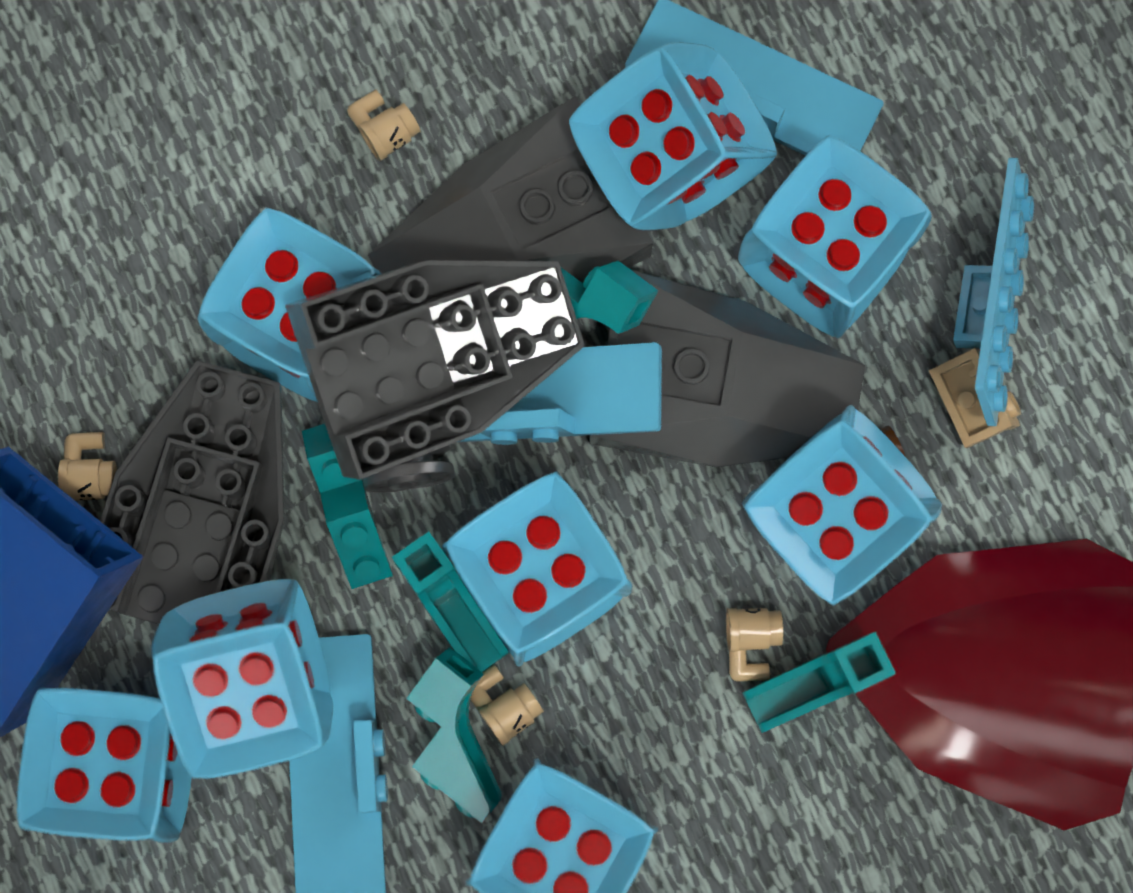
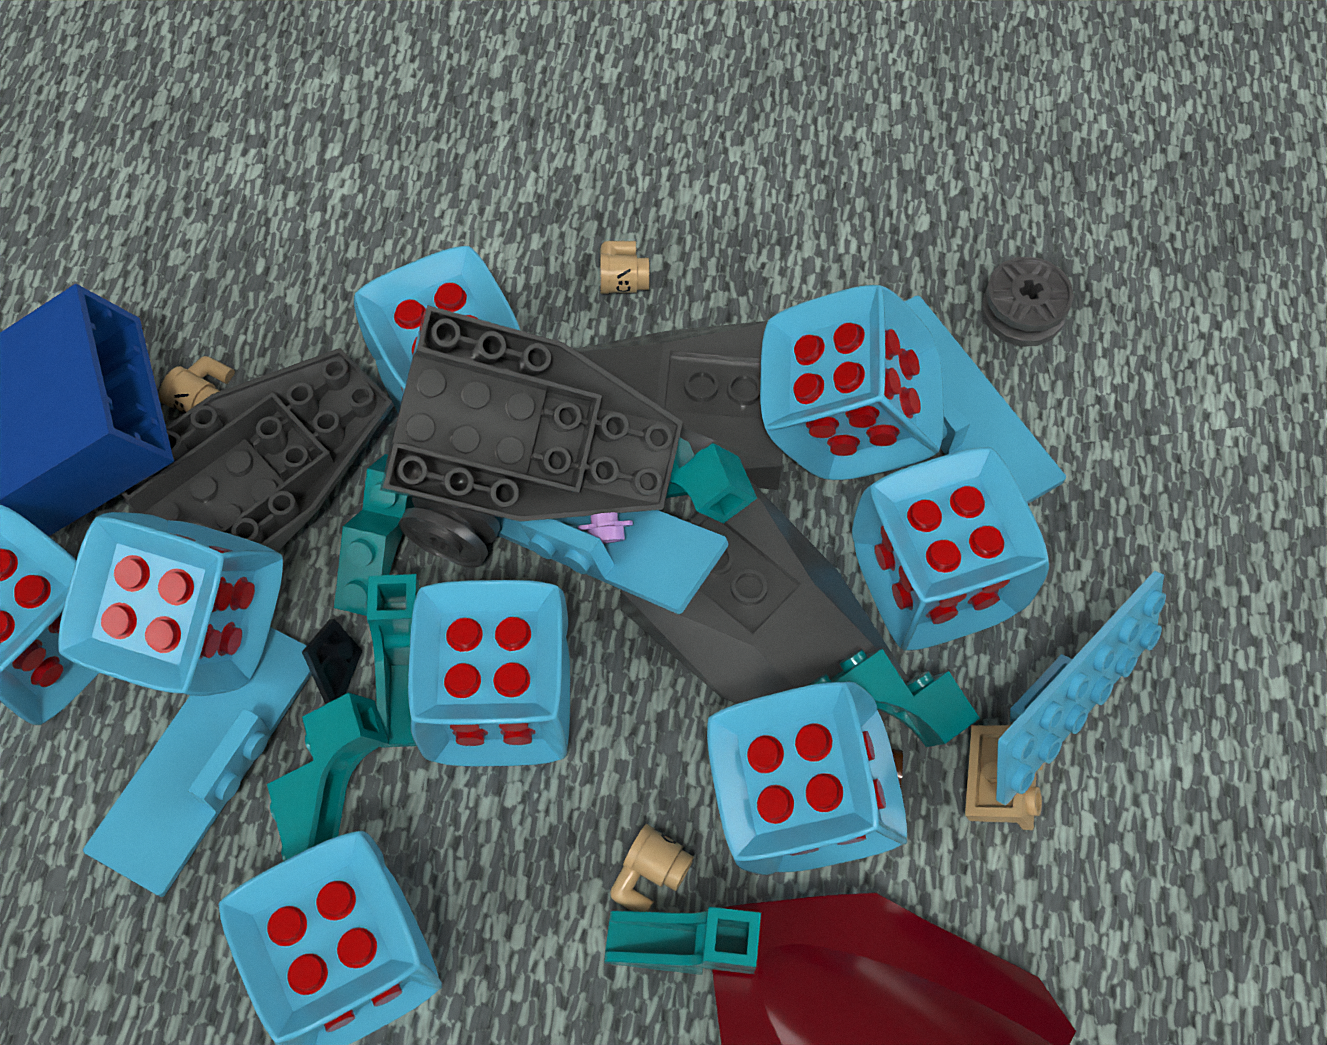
camera: 30 degrees right, 15 degrees down
(385, 635) = (332, 660): none -> black piece
(510, 711) = (388, 794): tan piece -> none
(551, 392) = (606, 527): none -> lavender plate
(888, 376) = (927, 704): none -> teal arch

